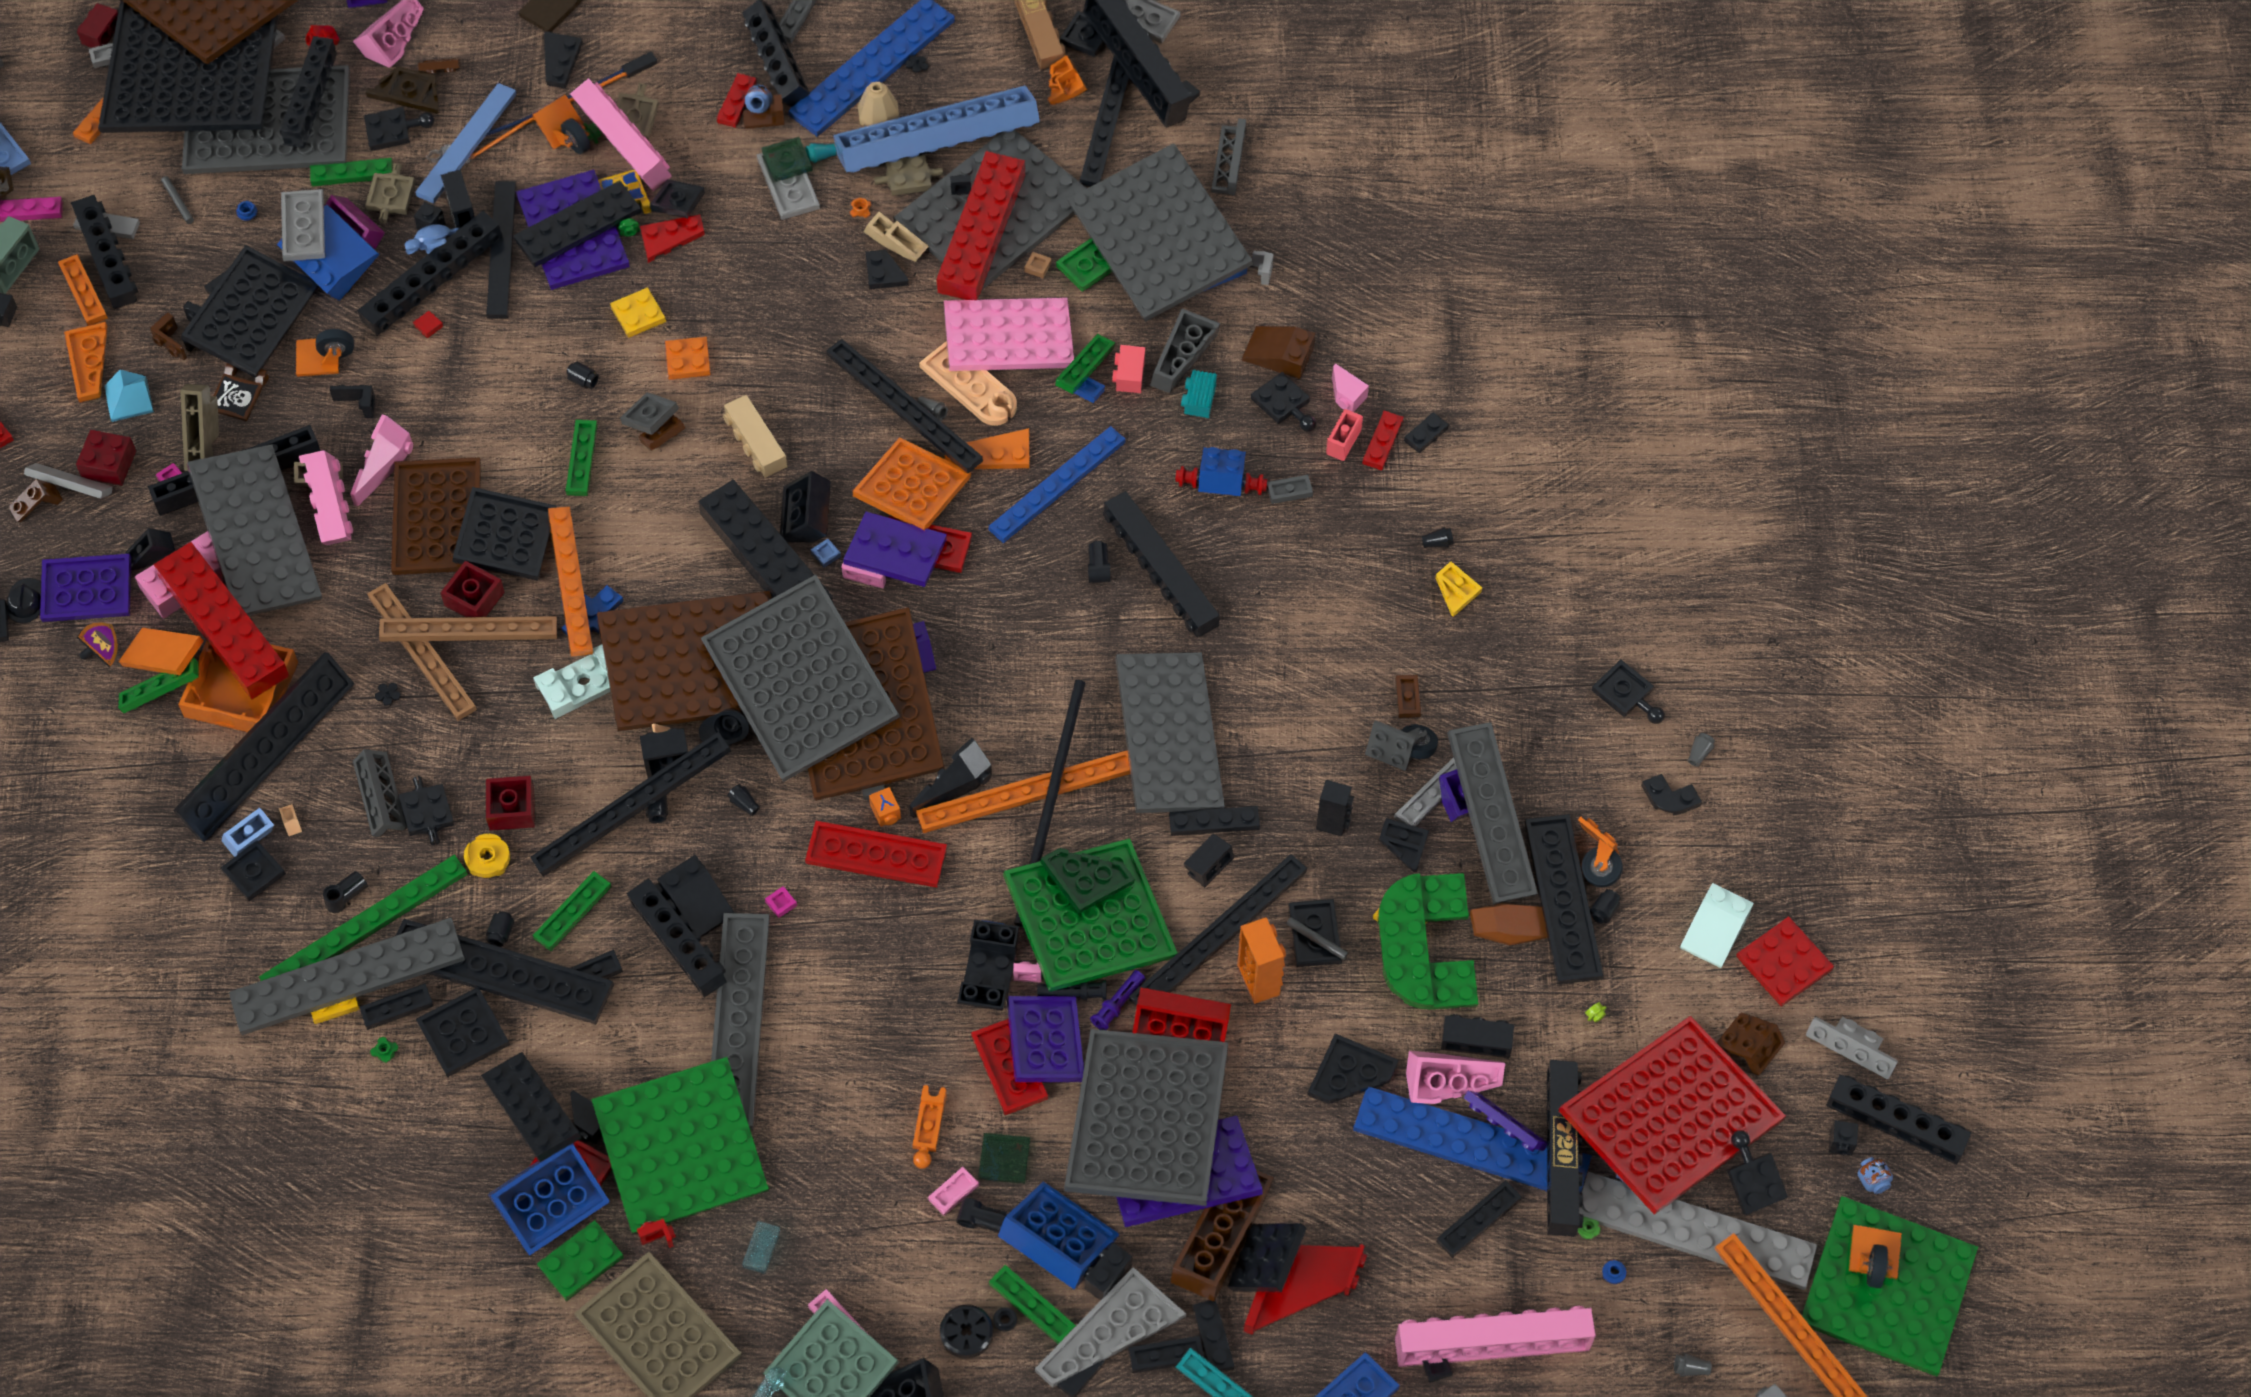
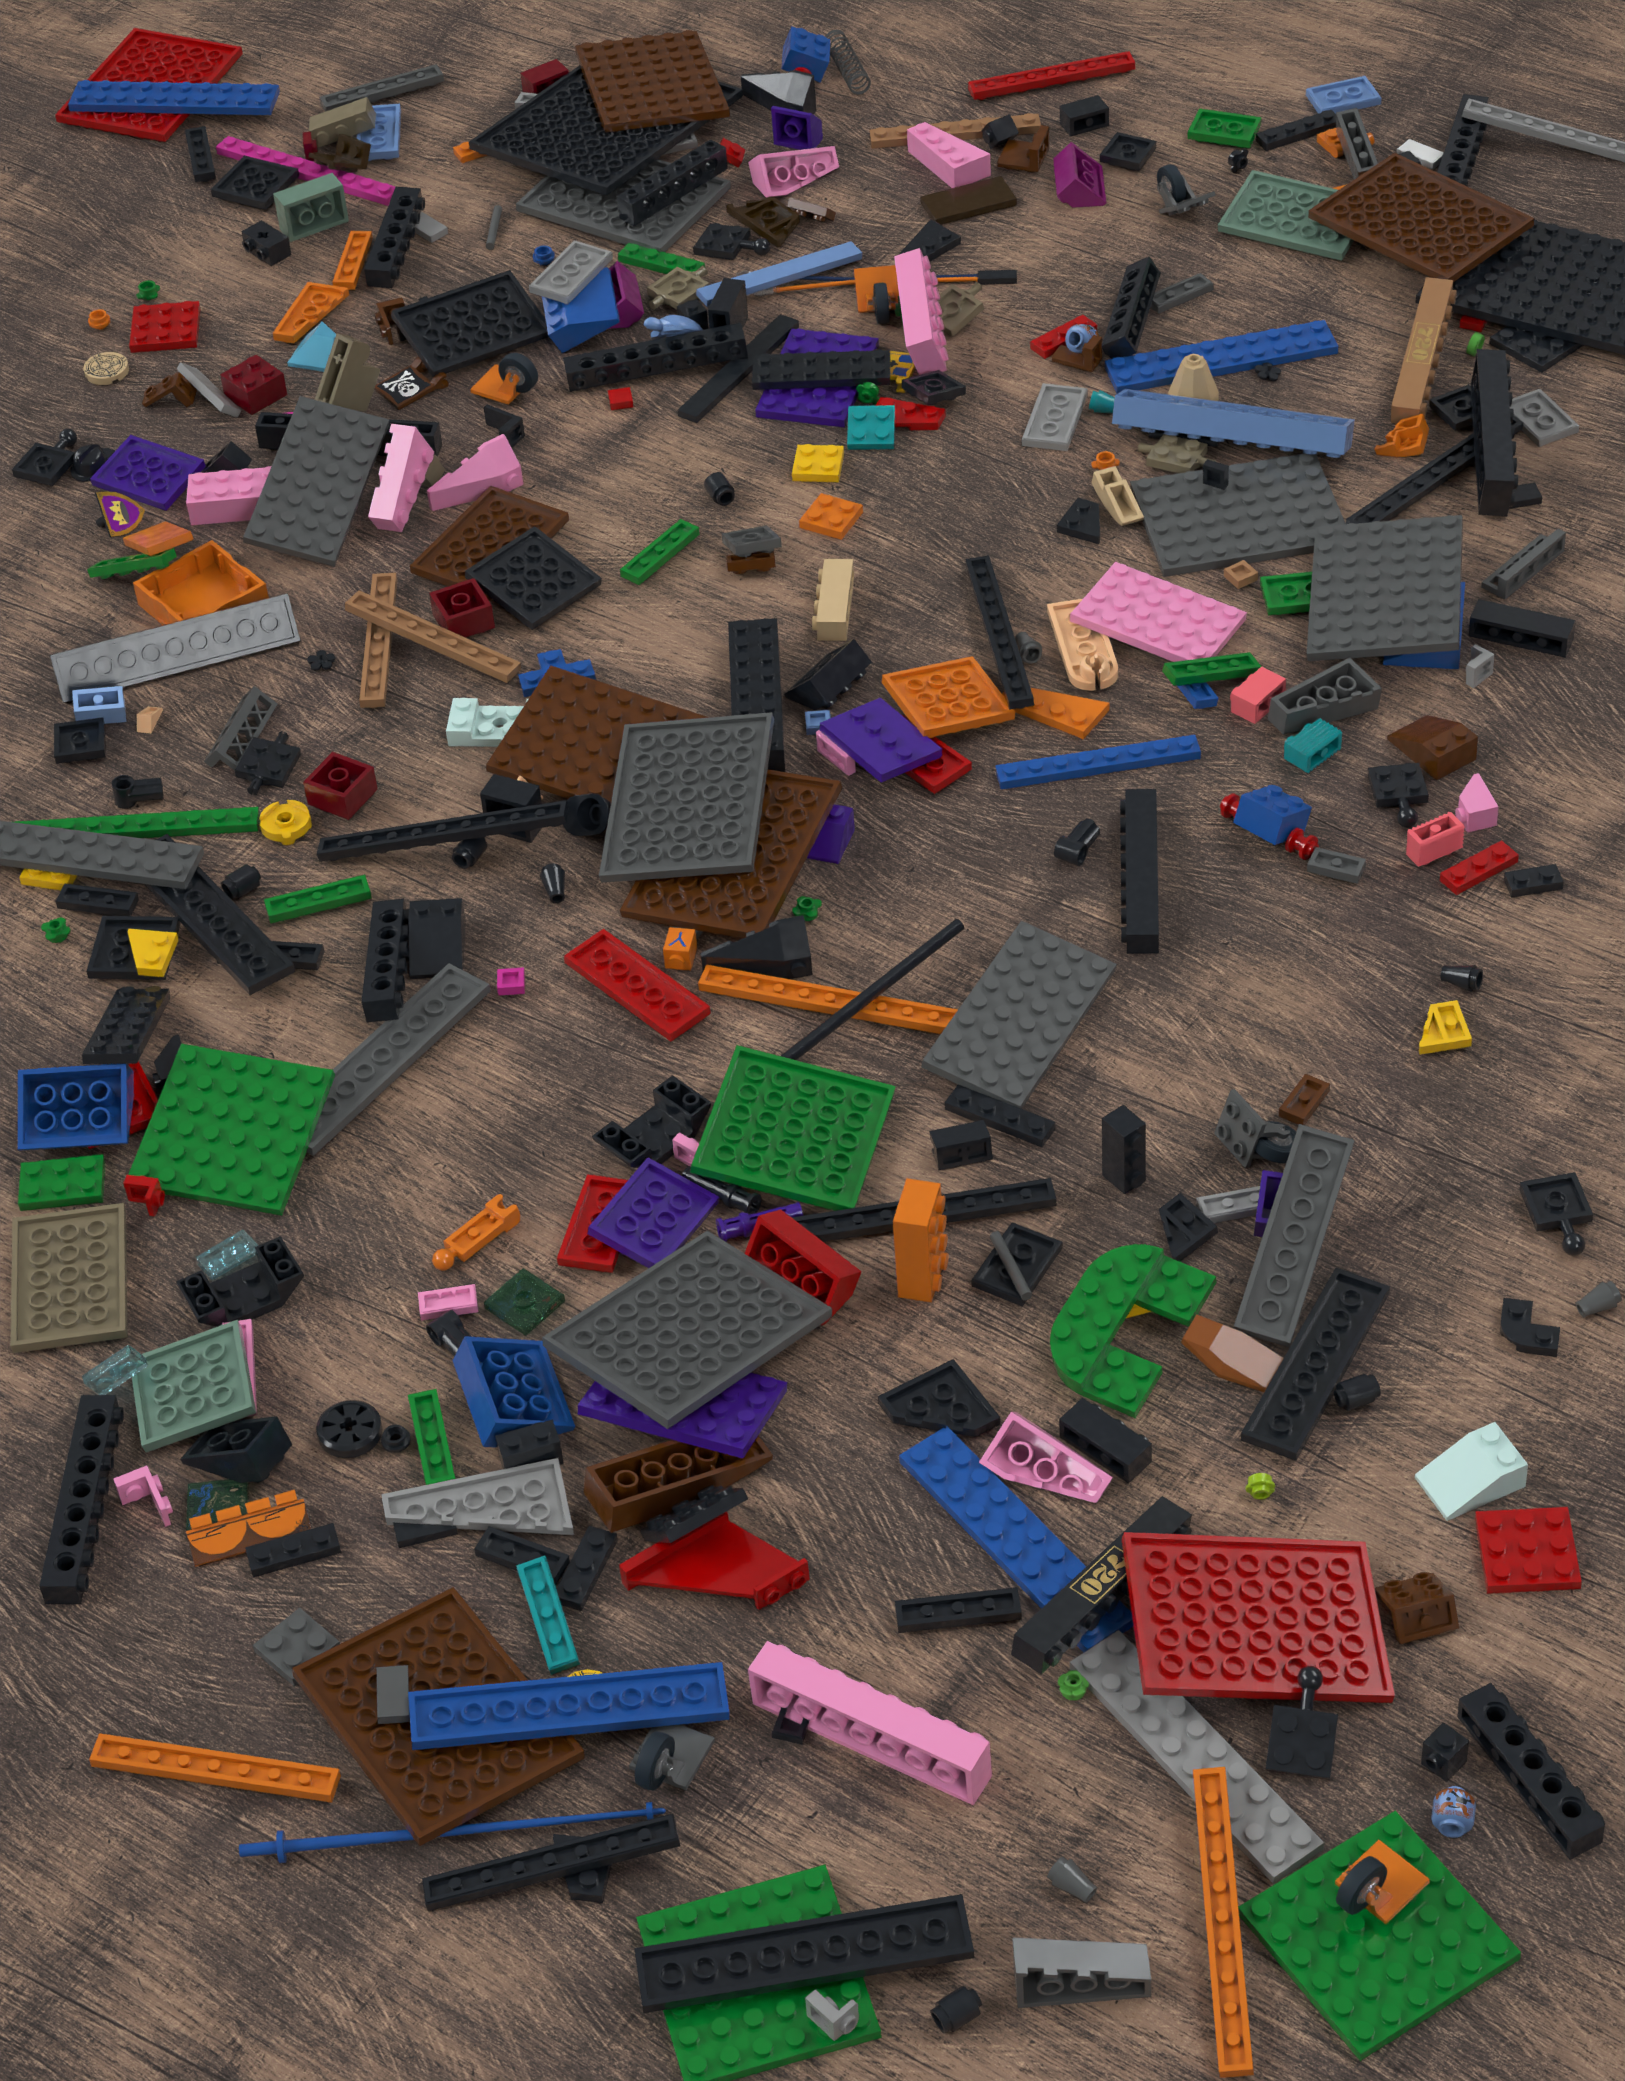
camera: 40 degrees right, 15 degrees down
(221, 620) = (221, 530): red brick -> none
(485, 1029) = (152, 950): none -> yellow wing
(570, 581) = (555, 638): orange plate -> none
(656, 259) = (871, 427): none -> teal plate
(786, 159) = (1066, 395): clear green tile -> none
(800, 1266) = (245, 1292): none -> black slope
(947, 726) = (807, 907): none -> green plate
(981, 226) = (1204, 514): red brick -> none
(1085, 877) = (814, 1091): dark green plate -> none
(1271, 217) = (1522, 628): none -> black brick
(1498, 1116) = (1062, 1527): dark purple plate -> none
(1601, 864) = (1389, 1347): plate -> none
(1612, 1278) = (1064, 1749): blue plate -> none
(1853, 1043) = (1540, 1668): light grey bracket -> none

